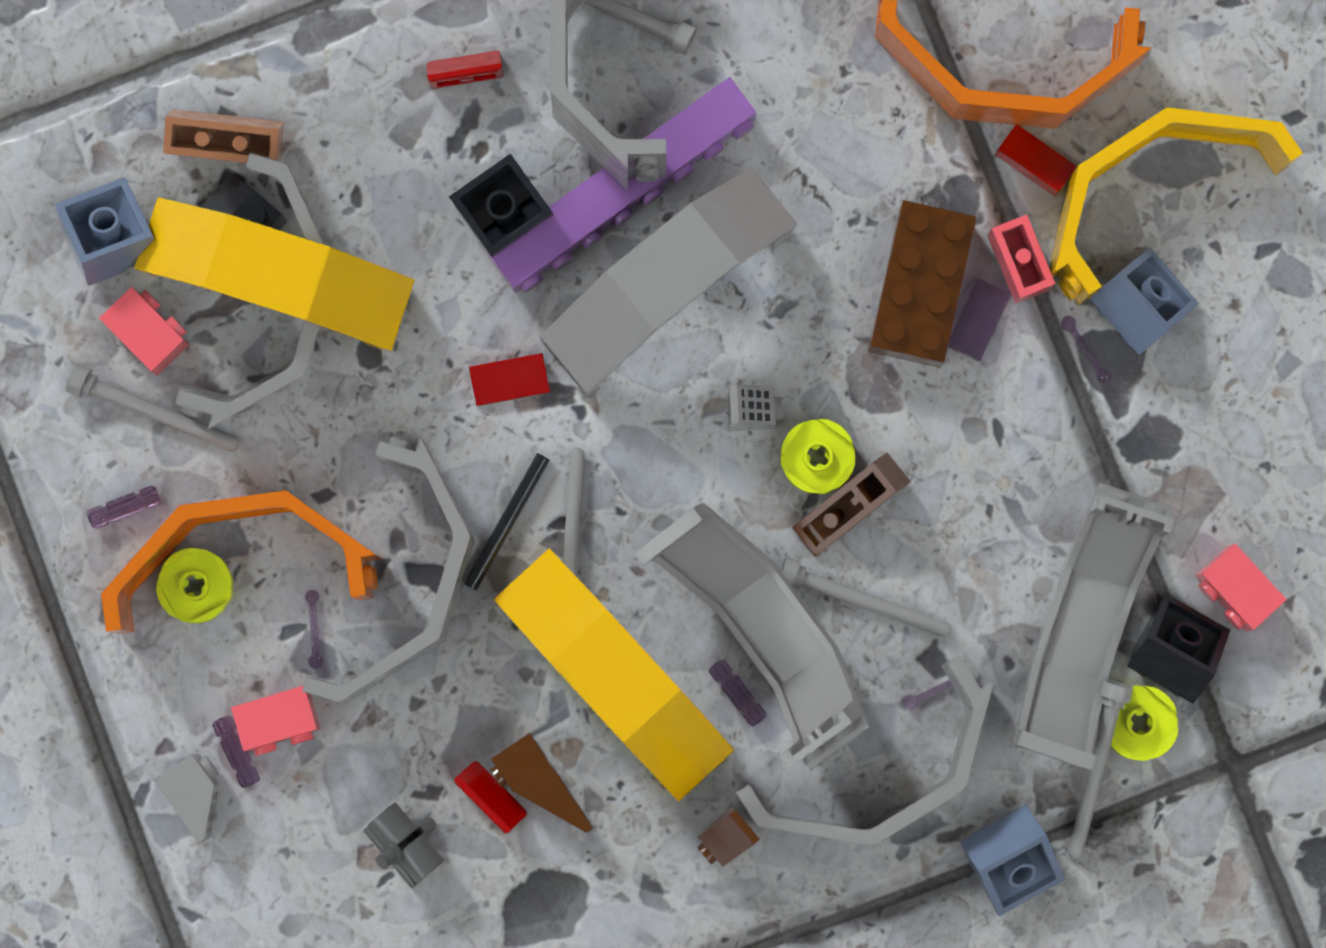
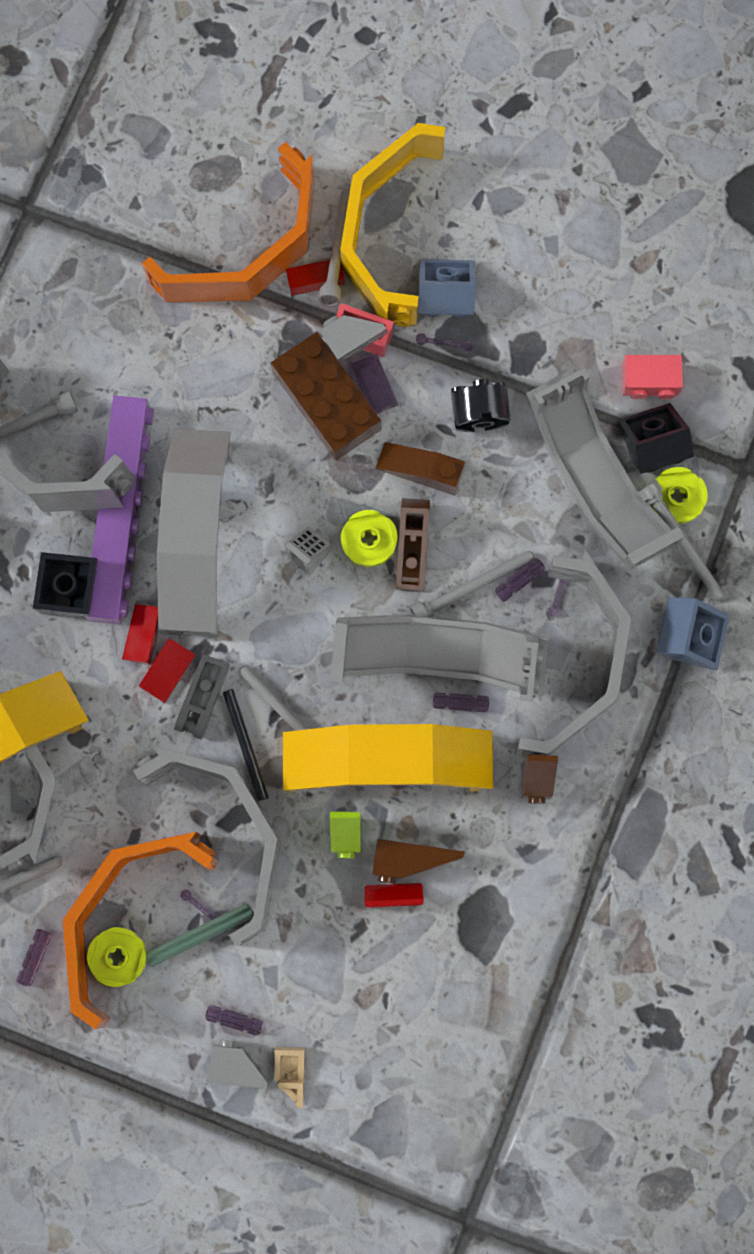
camera: 45 degrees left, 5 degrees down
(235, 850) = (289, 1072): none -> tan slope
(276, 719) = (236, 979): coral brick -> none
(286, 645) = (199, 934): none -> sand green axle
(404, 844) = (375, 969): dark grey pin -> none
(505, 699) = (345, 834): none -> lime slope
(516, 436) = (202, 695): none -> dark grey plate
(522, 322) = (141, 635): none -> red slope
(912, 641) = (520, 579): none -> clear purple axle
(936, 442) = (422, 467): none -> reddish brown slope
(998, 254) = (350, 335): none -> light grey slope
(1028, 193) = (330, 291): none -> light grey piece
(1050, 446) = (480, 406): none -> black brick

